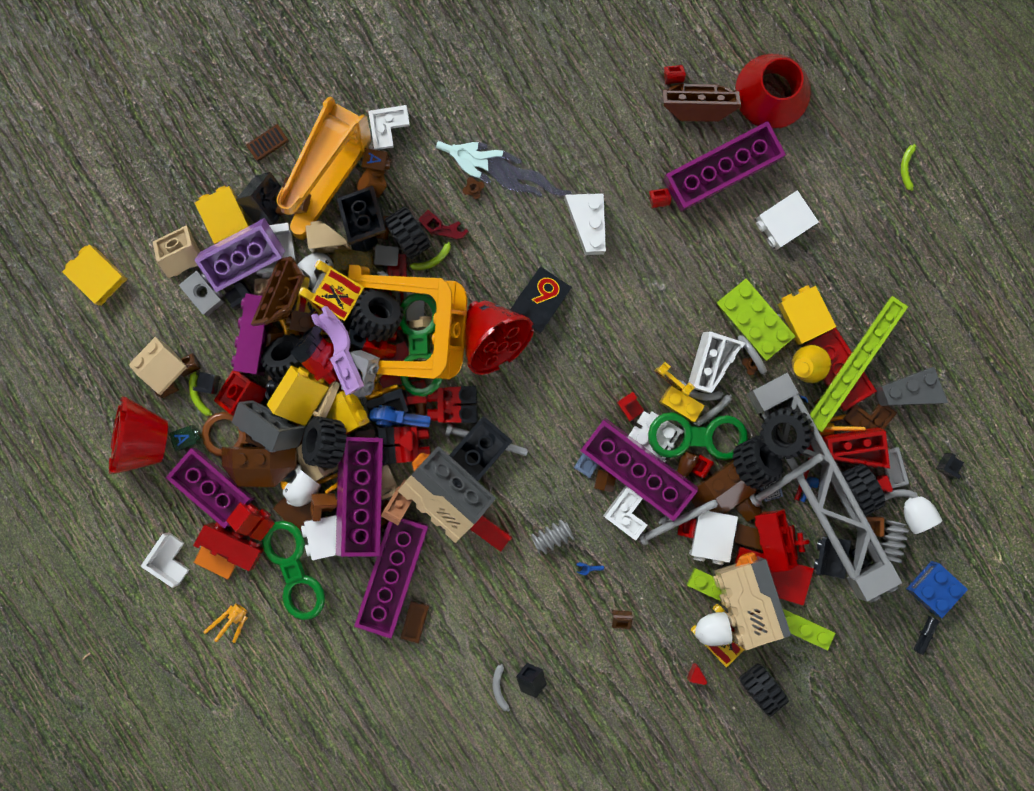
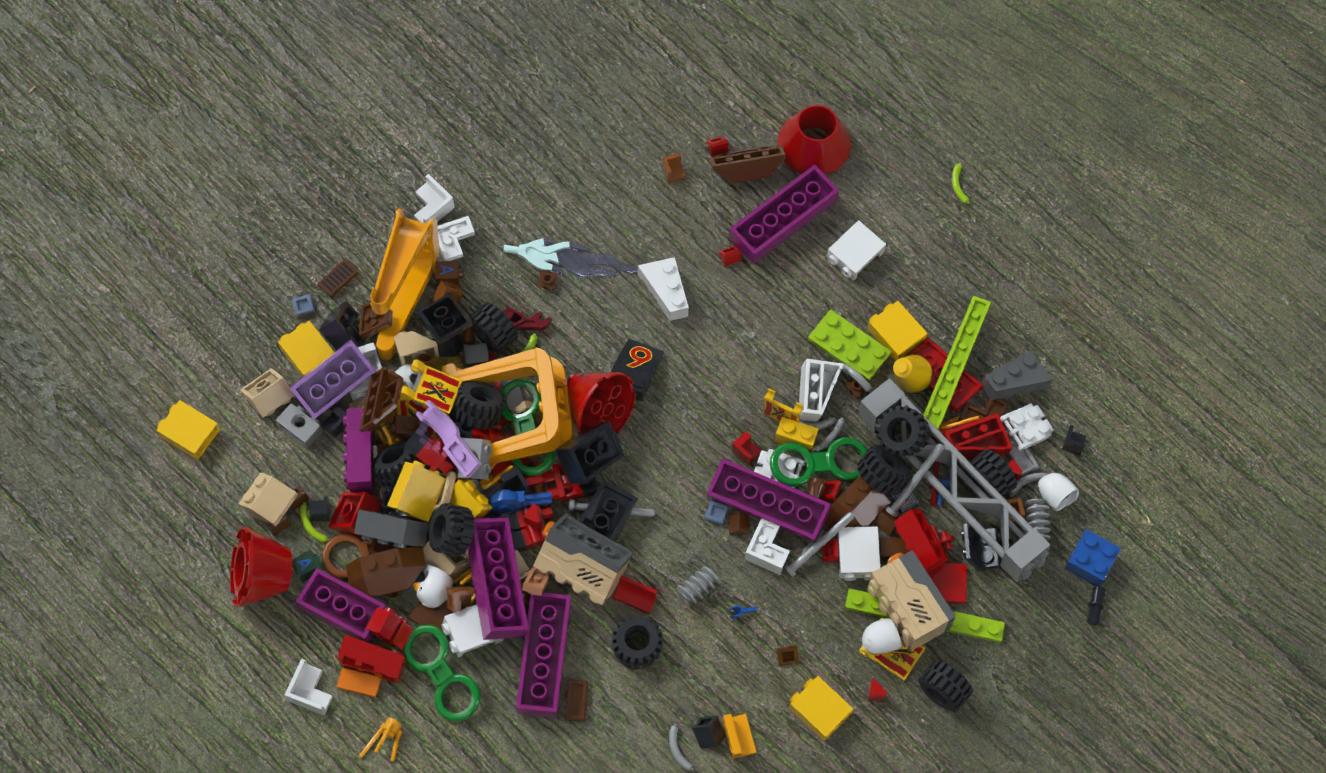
camera: 10 degrees left, 20 degrees down
(228, 165) = (303, 306): none -> sand blue tile
(332, 257) = (426, 359): none -> reddish brown plate
(380, 81) = (437, 201): none -> white panel
(474, 390) = (589, 453): none -> black slope
(479, 597) = (637, 657): none -> black tyre
(559, 688) = (739, 735): none -> light orange panel
(623, 92) = (673, 168): none -> dark orange panel
(640, 680) = (820, 707): none -> yellow brick
(909, 441) = (1028, 425): none -> white plate

